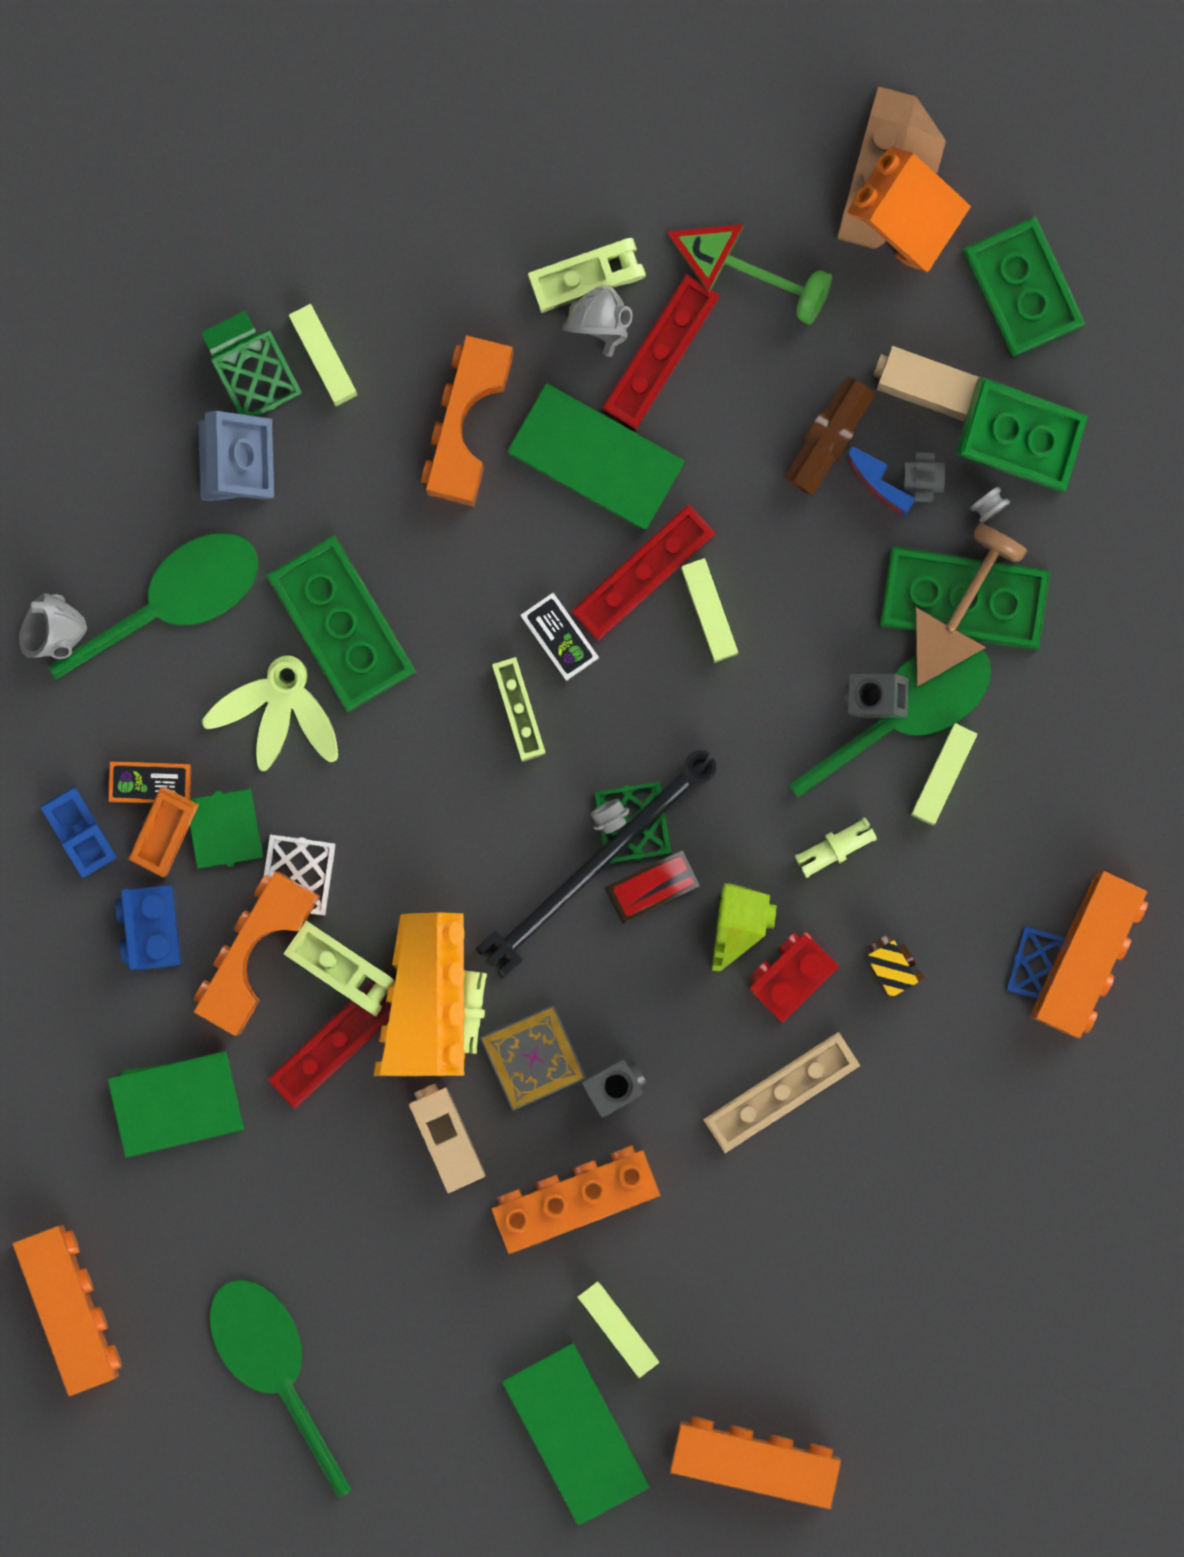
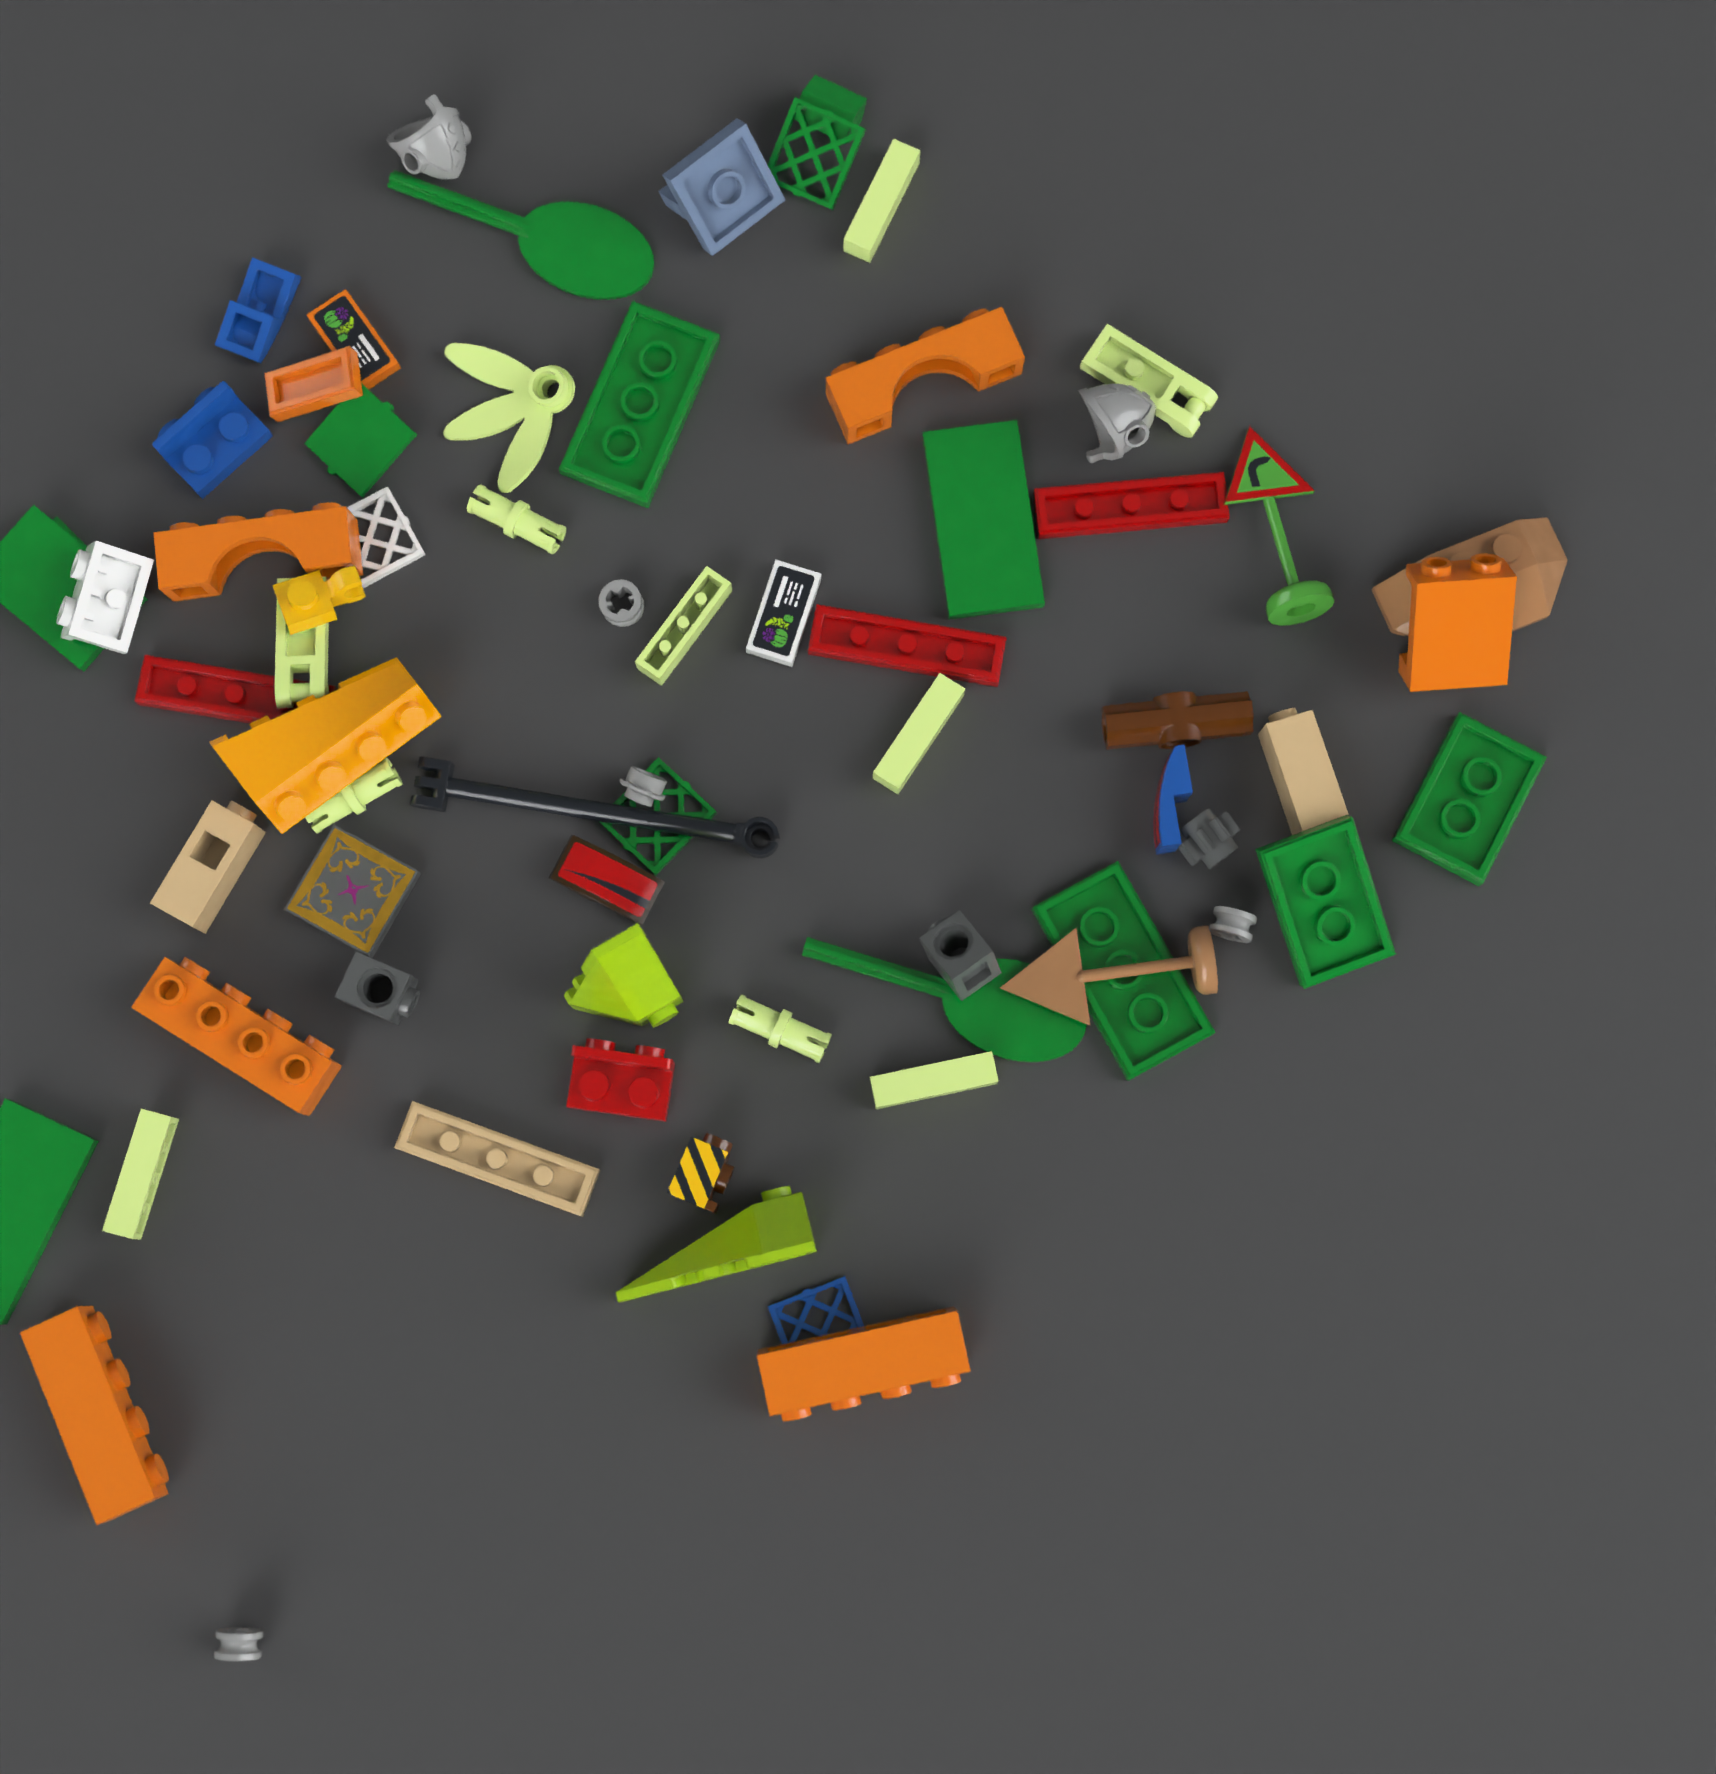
camera: 45 degrees right, 5 degrees down
(212, 1076) = (105, 596): none -> white bracket
(320, 942) = (310, 600): none -> yellow plate
(360, 765) = (516, 519): none -> yellowish green pin
(460, 734) = (623, 617): none -> light grey bush
(959, 963) = (751, 1239): none -> lime wedge
(968, 1477) = (238, 1644): none -> light grey bush

